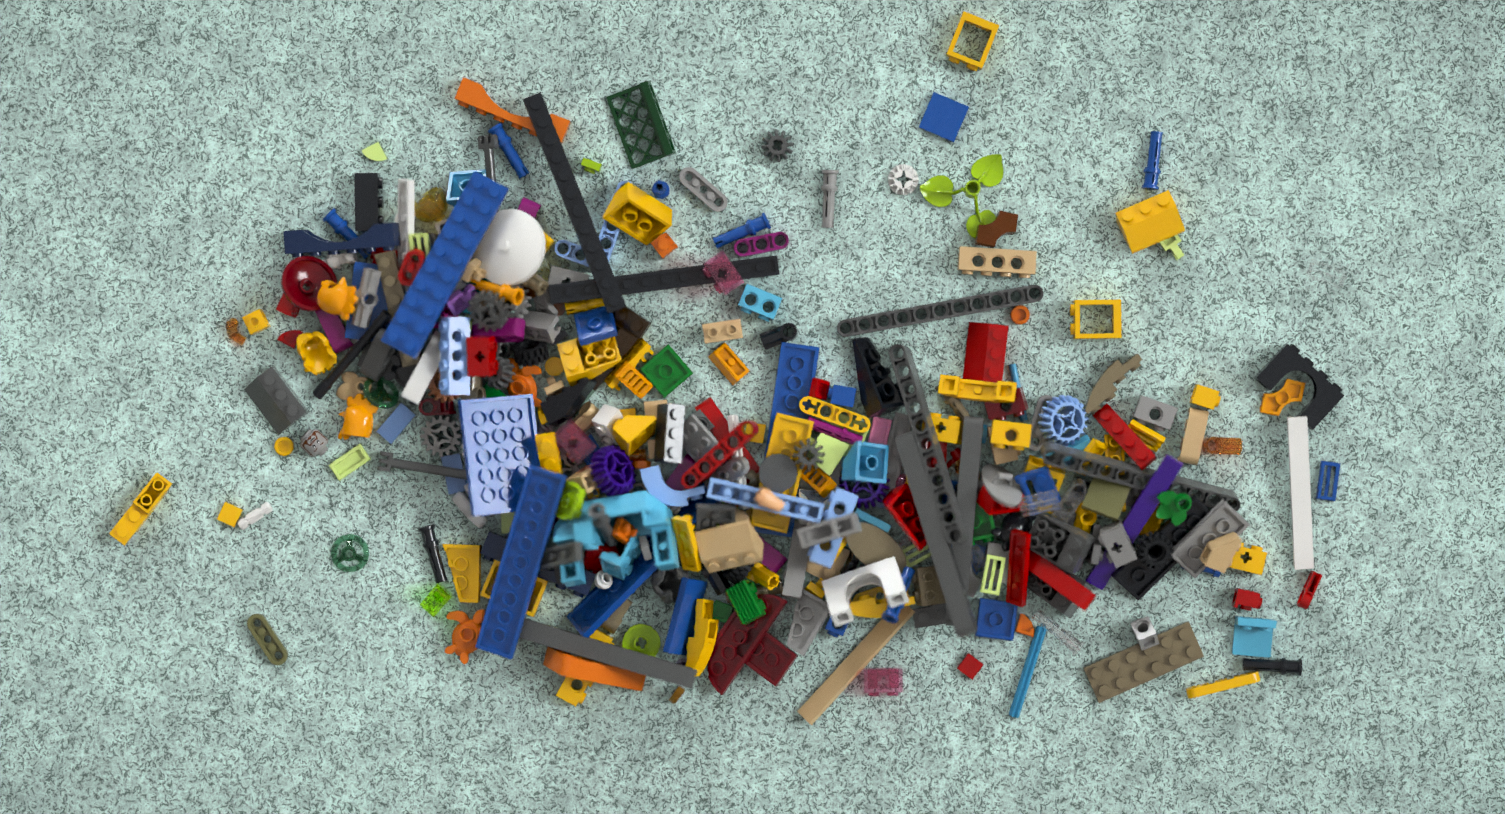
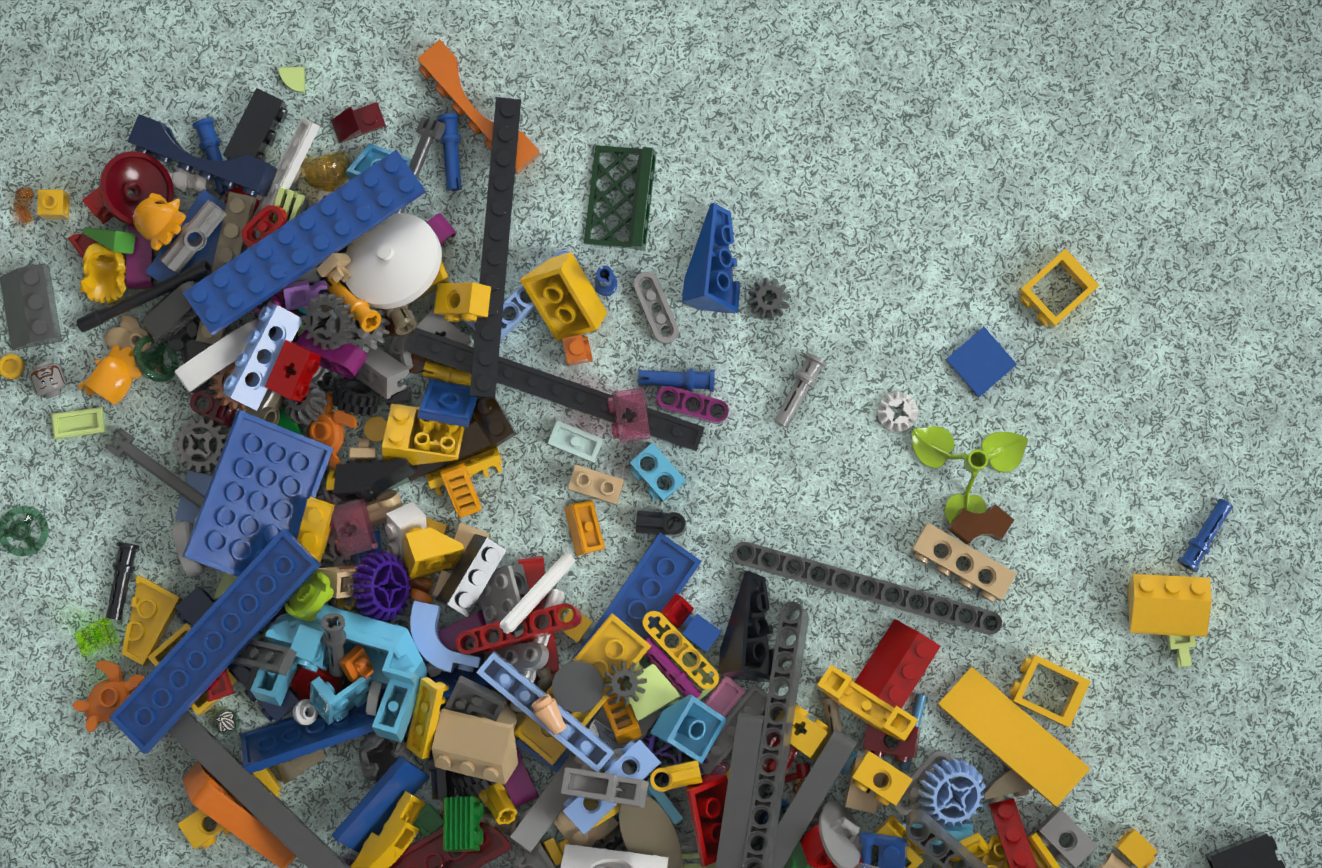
camera: 15 degrees right, 5 degrees down
(311, 326) = (112, 239): none -> bright green slope
(396, 423) = (156, 404): medium blue tile -> none
(434, 161) = (357, 122): none -> dark red slope
(539, 591) = (220, 687): none -> red tile
(552, 612) = (226, 721): none -> tile
(571, 251) = (462, 301): none -> yellow brick
(591, 166) = (537, 215): lime plate -> none
(645, 632) = (325, 802): lime plate -> none
(666, 371) = (506, 499): green plate -> none
(694, 308) = (575, 441): none -> light aqua plate
(720, 423) = (537, 593): none -> white axle
(728, 148) = (709, 273): none -> blue wedge
(874, 498) = (679, 775): none -> yellow piece
(1019, 314) = (959, 640): orange tile -> none
(1086, 362) = (1014, 737): none -> yellow tile

